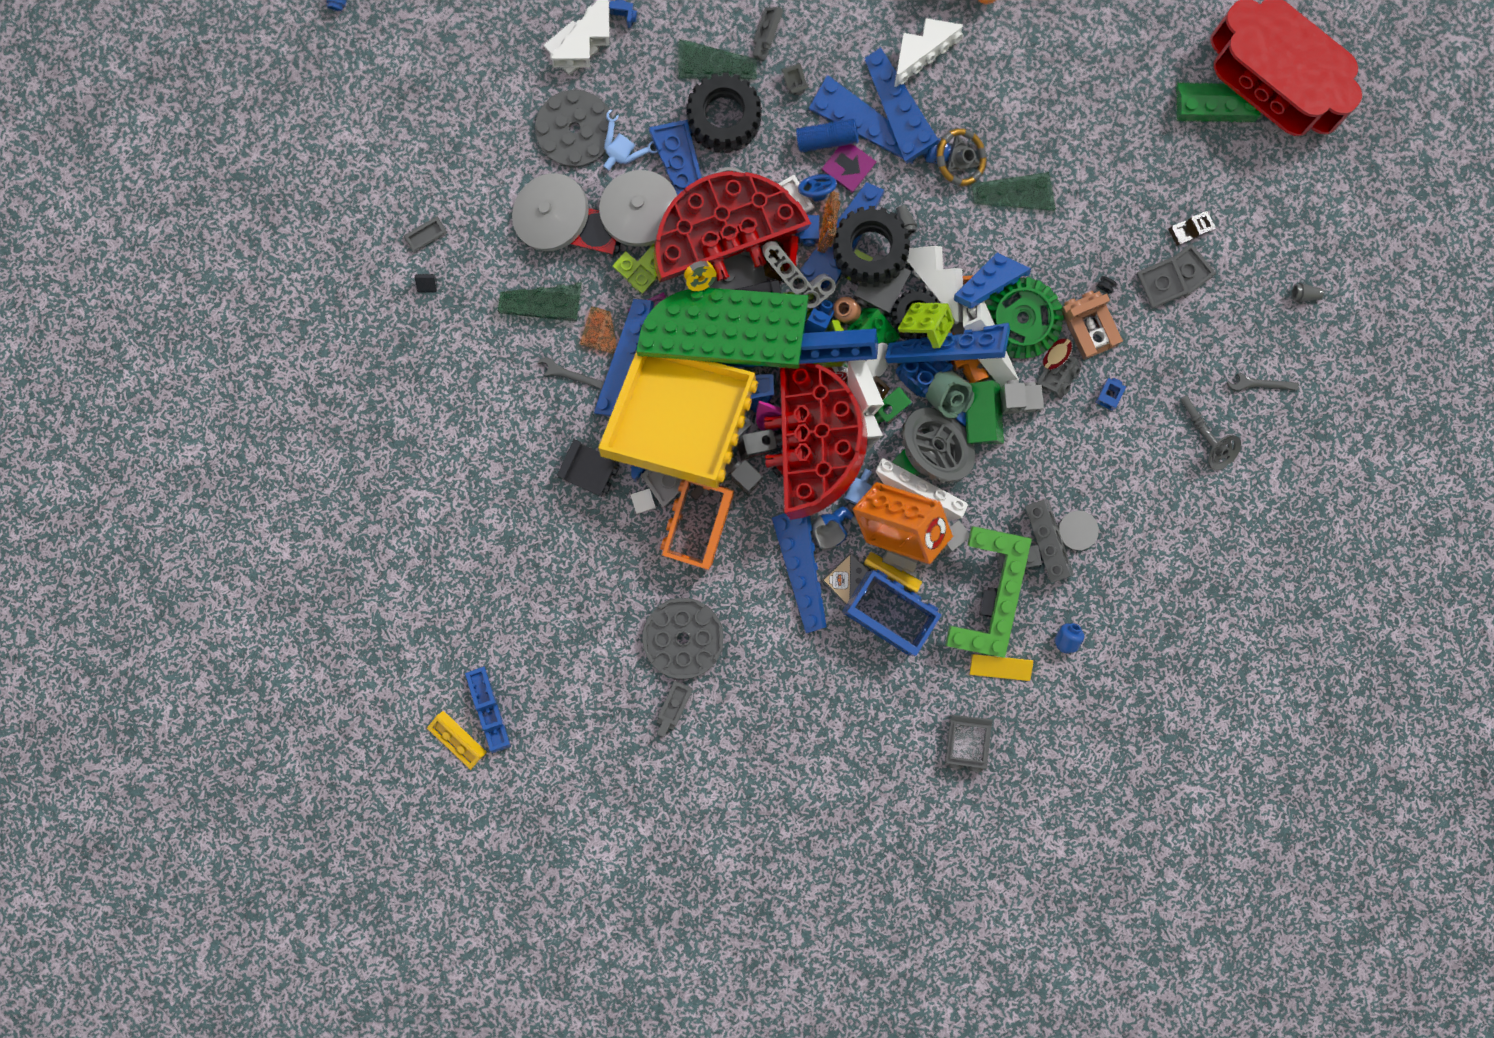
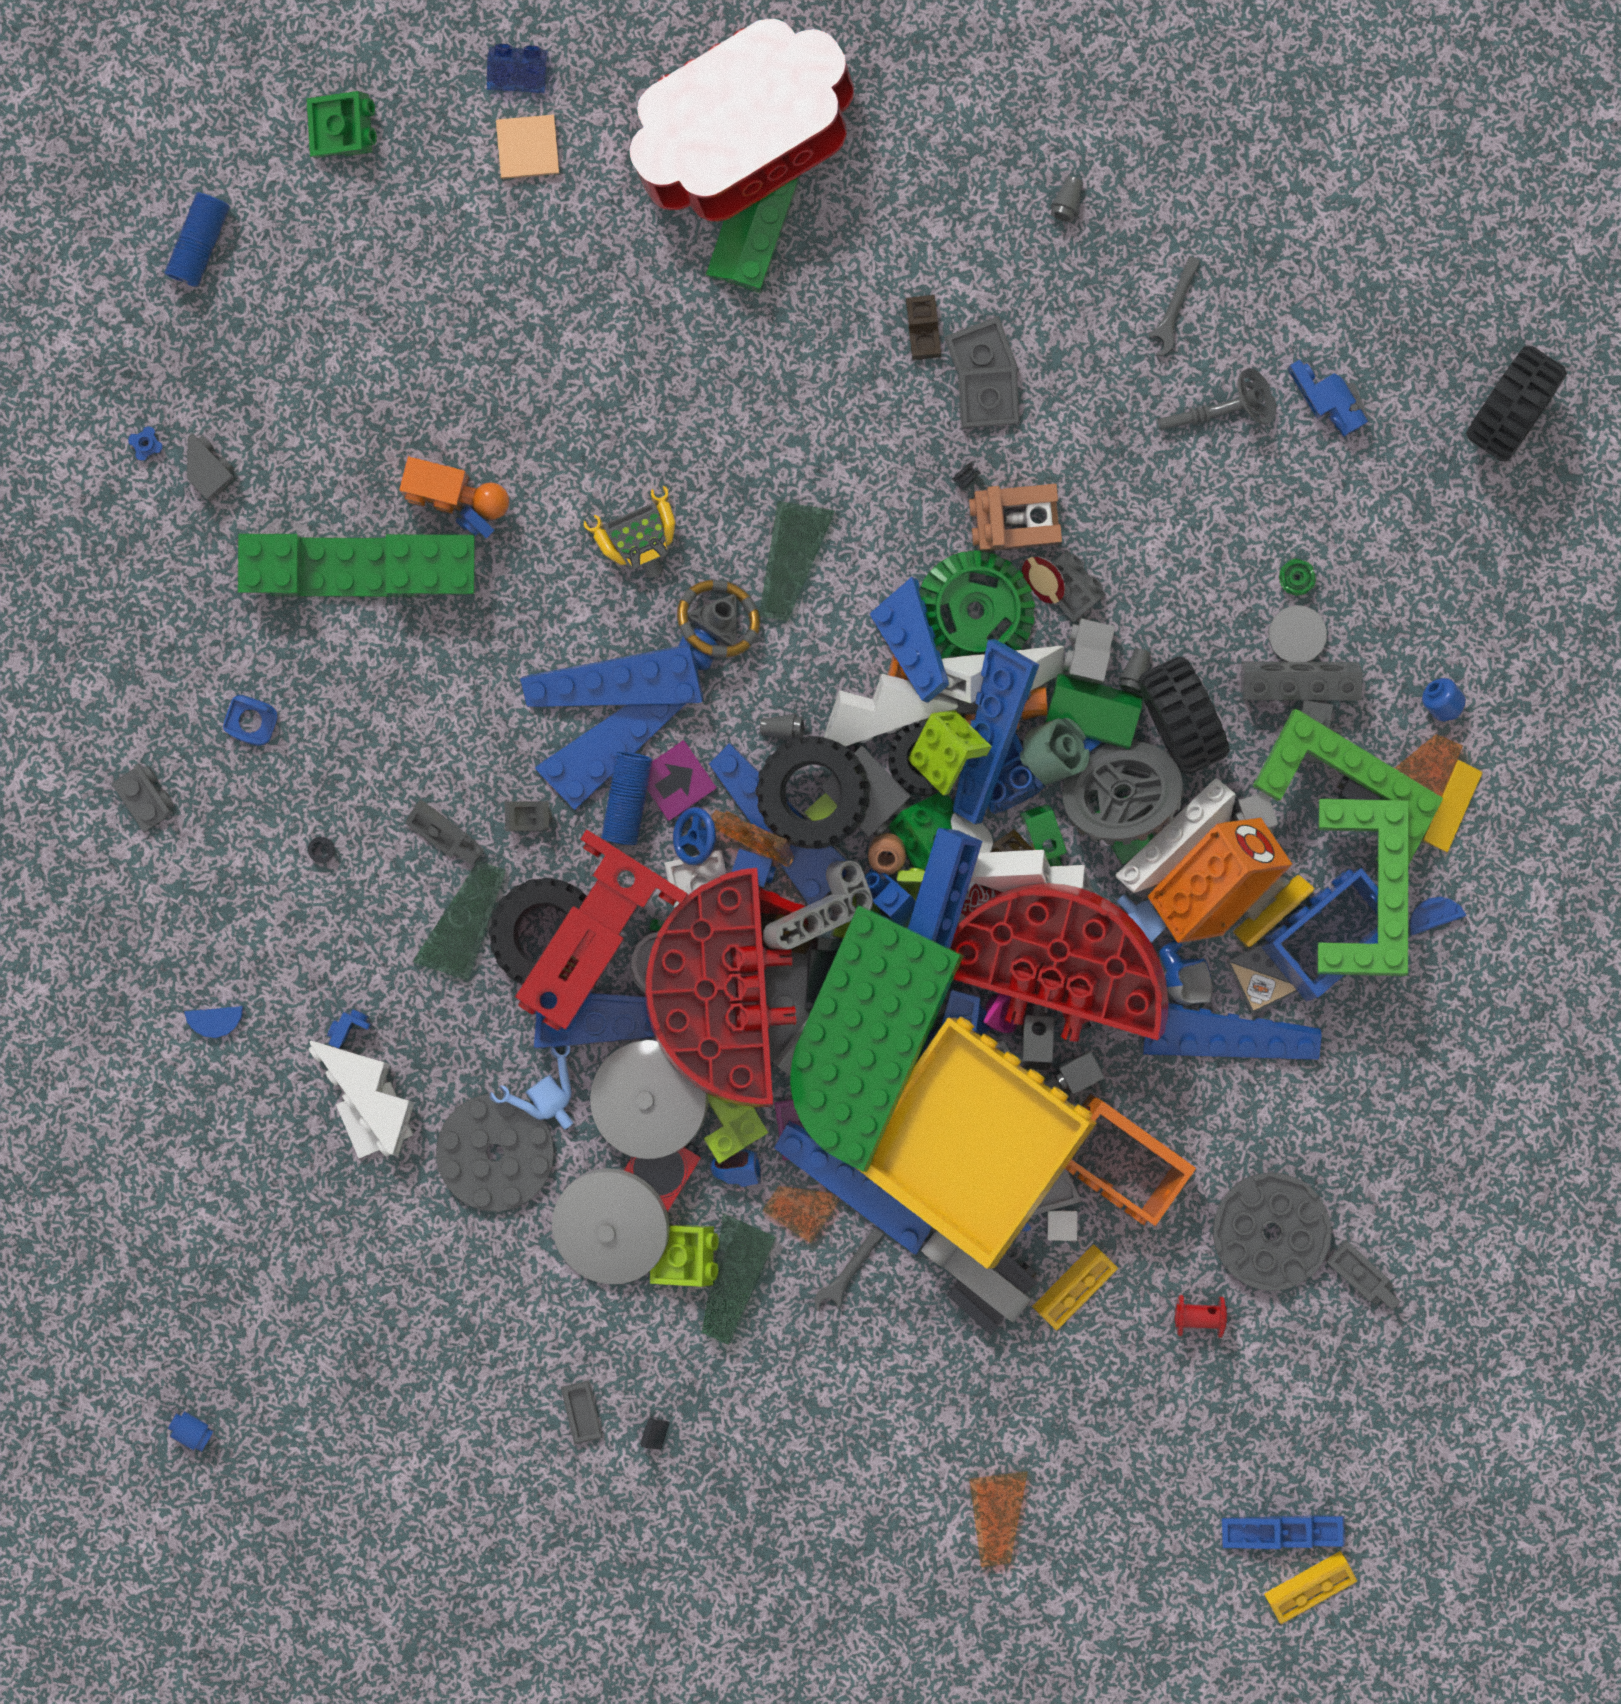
camera: 70 degrees left, 5 degrees up
(442, 518) = (996, 1514): none -> clear orange wing
(545, 267) = (687, 1257): none -> lime plate
(590, 459) = (984, 1282): none -> light grey beam
(605, 520) = (1072, 1284): none -> yellow slope
(612, 608) = (1200, 1316): none -> red hose
(613, 283) = (740, 1168): none -> blue rock
(699, 276) = (783, 1048): yellow piece -> none
(732, 130) = (591, 934): none -> red brick
(892, 649) = (1390, 953): none -> bright green plate
(920, 50) = (547, 627): white slope -> none
(926, 678) = (1434, 913): none -> blue tile
(968, 742) = (1541, 886): window -> none
(997, 91) = (638, 536): none -> torso
(1002, 466) = (1184, 715): none -> black tyre
(1017, 433) = (1135, 667): none -> dark grey cone
(1025, 644) = (1432, 763): none -> clear orange wing
(1111, 402) = (1134, 524): blue brick -> none
(1120, 513) = (1301, 568): none -> green plate
(1240, 502) = (1330, 396): none -> blue plate
(1282, 619) = (1516, 403): none -> black tyre

